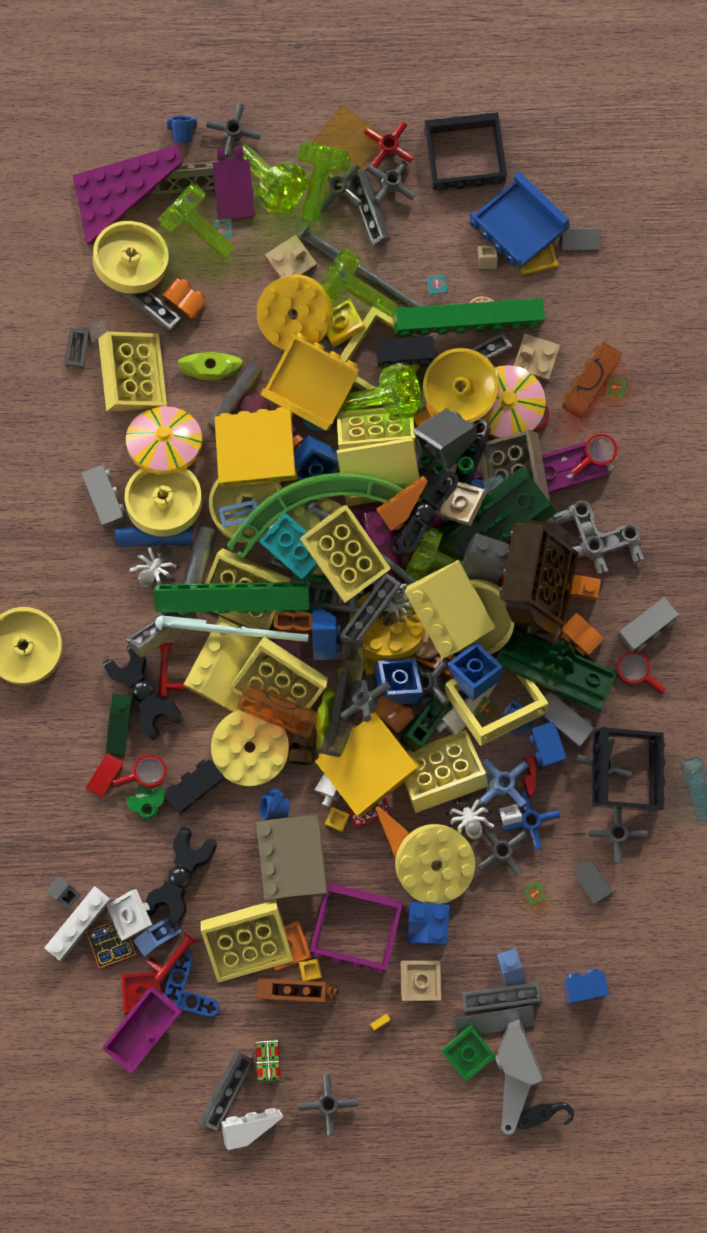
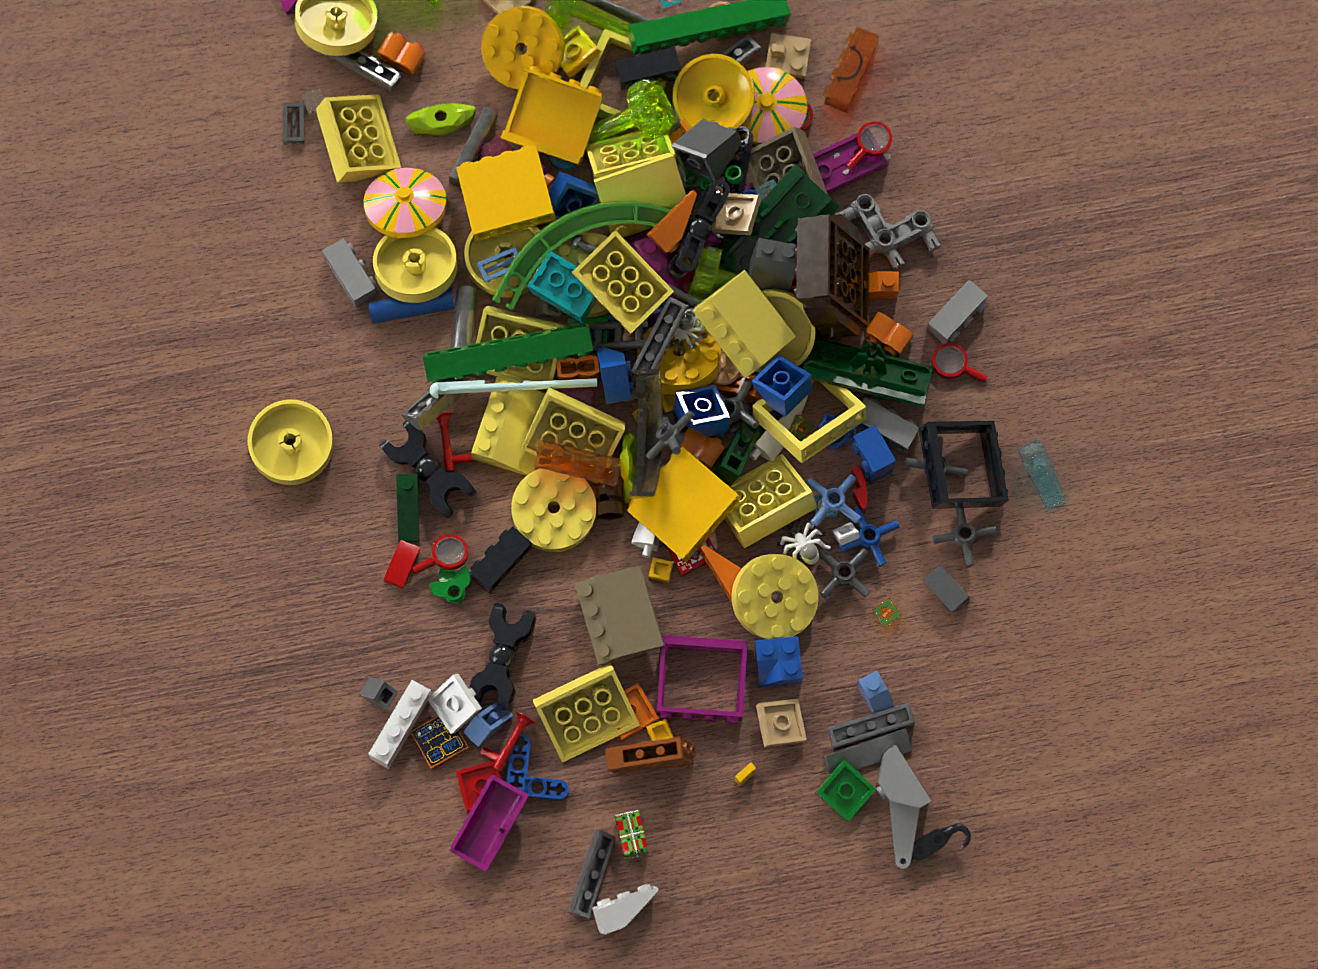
camera: 10 degrees left, 5 degrees down
(152, 569) = (416, 339): animal -> none
(274, 806) = (589, 564): blue piece -> none
(319, 1104) = (707, 879): dark grey bar -> none
(585, 987) = (959, 698): blue slope -> none
(616, 386) = (878, 73): clear yellow tile -> none

